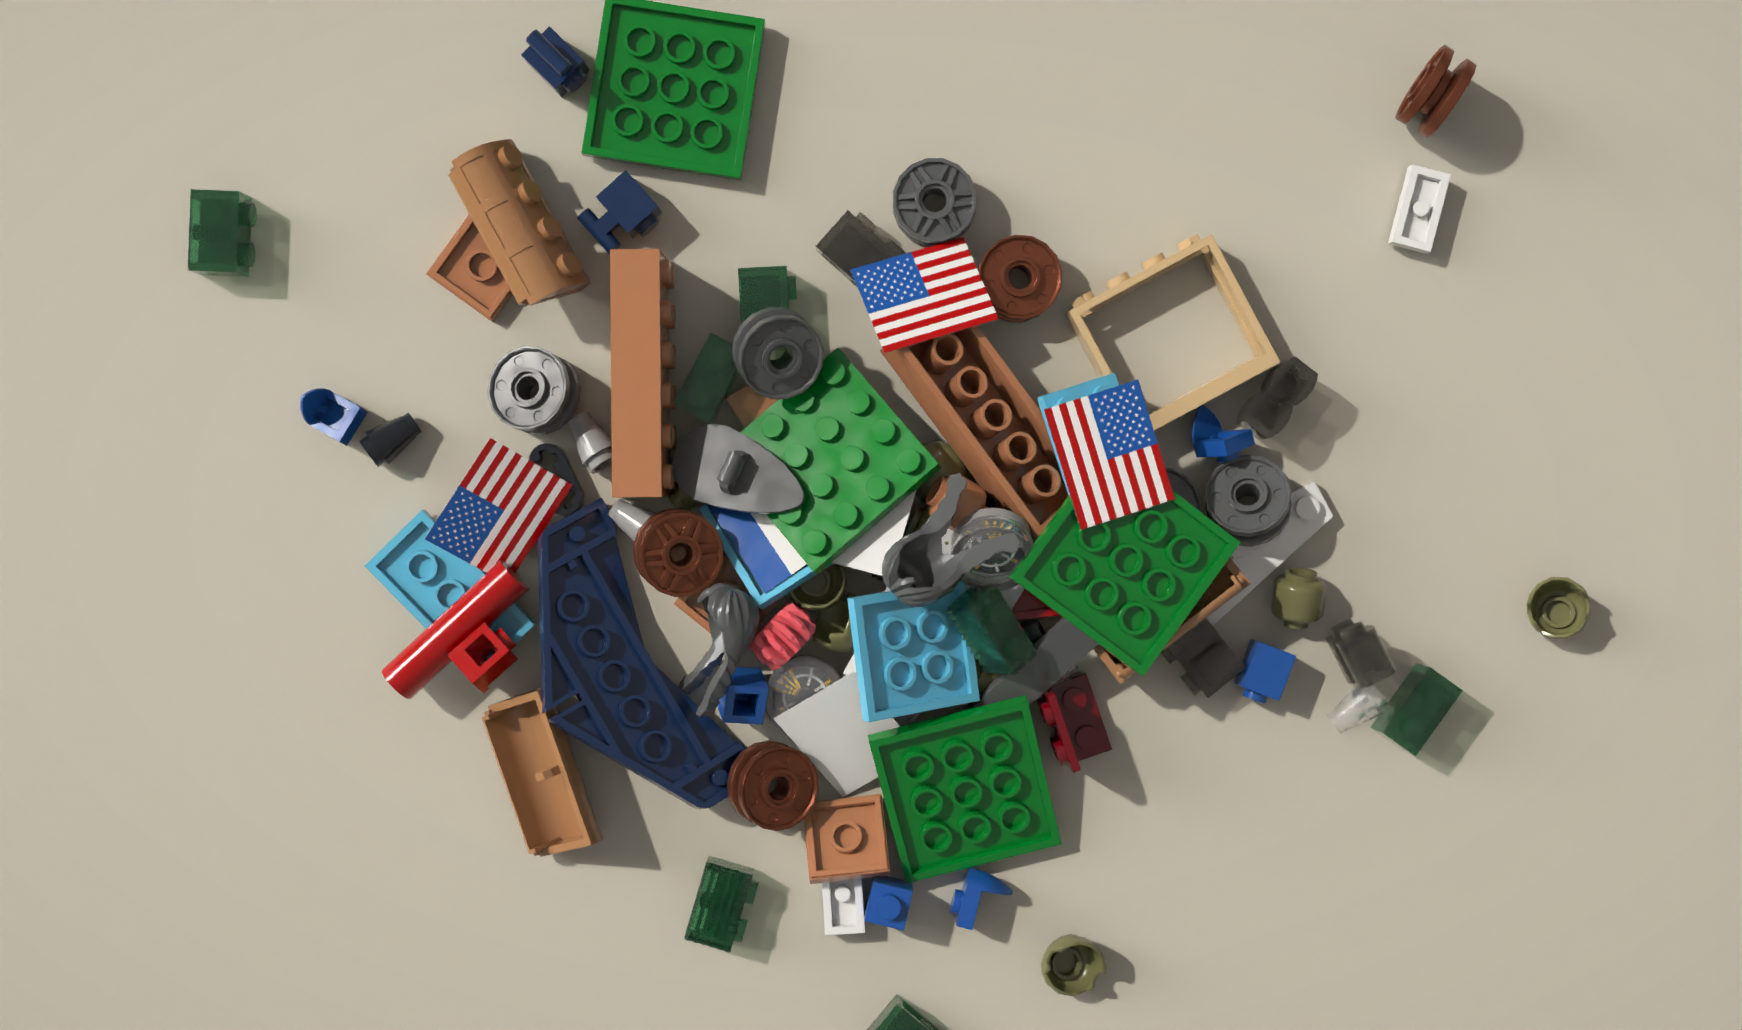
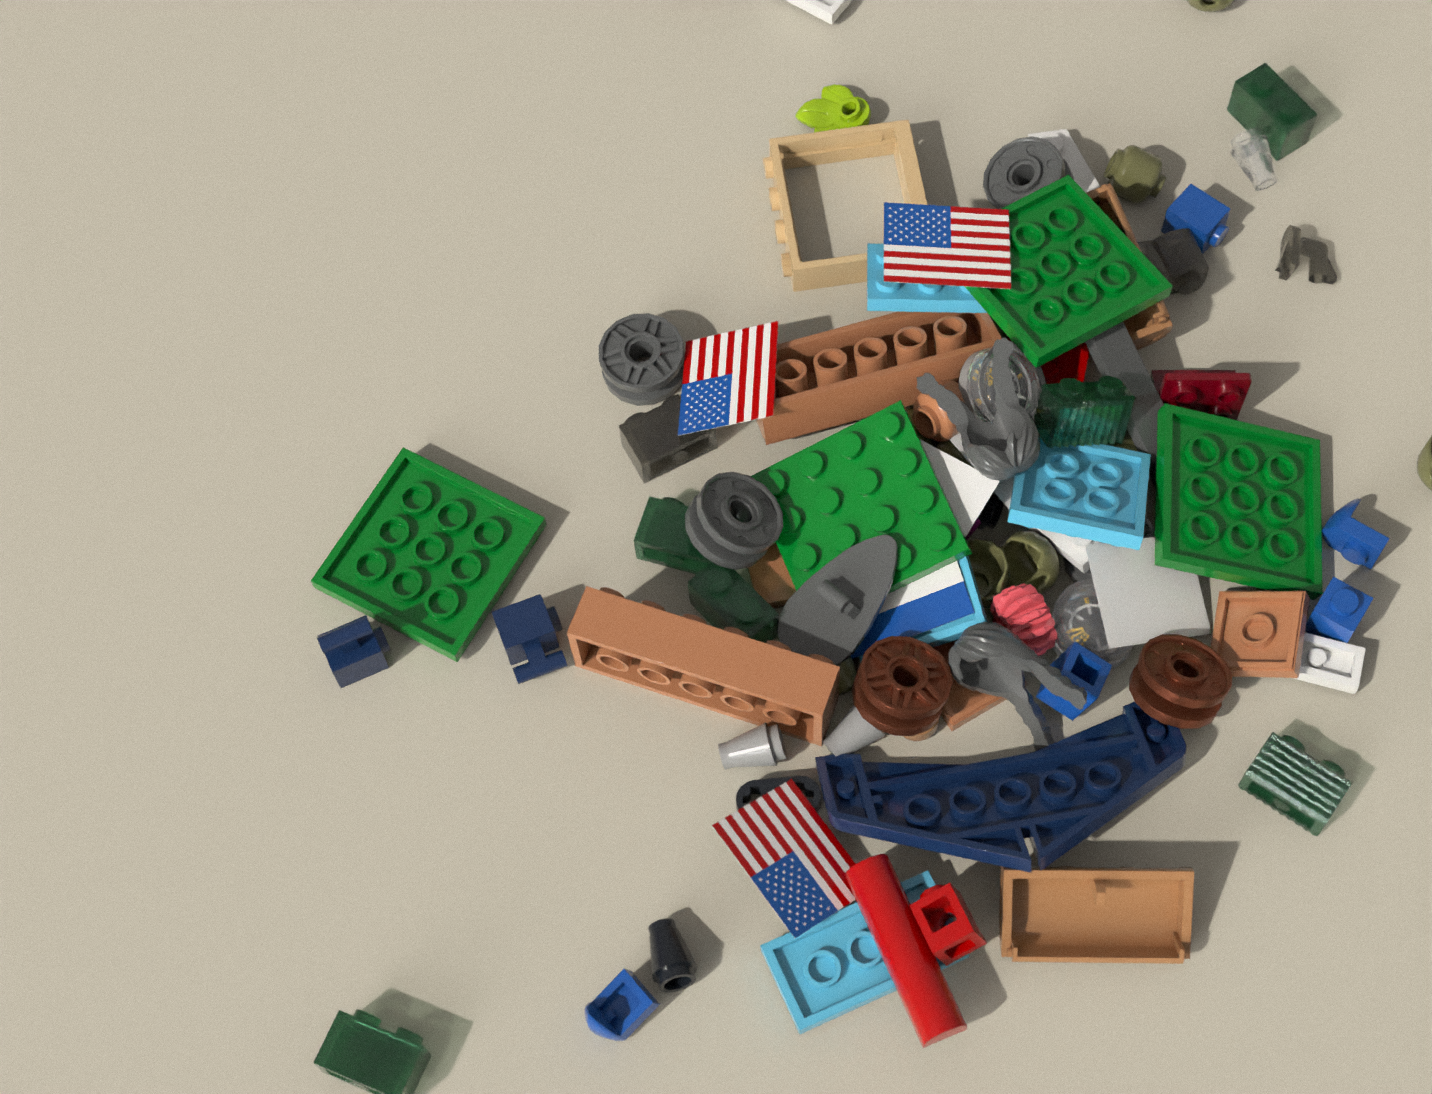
camera: 60 degrees left, 25 degrees down
(471, 272) = (525, 799): nougat tile -> none
(511, 387) = (651, 775): wheel -> none
(516, 223) = (500, 731): medium nougat container -> none
(1036, 261) = (739, 291): copper wheel -> none
(1212, 441) = (968, 187): blue plate -> none
(1273, 790) = (1293, 246): none -> clear smoke piece
(1275, 278) = (834, 110): none -> lime plate
(1280, 391) = (941, 134): clear smoke brick -> none
(1360, 653) = (1204, 133): clear smoke brick -> none

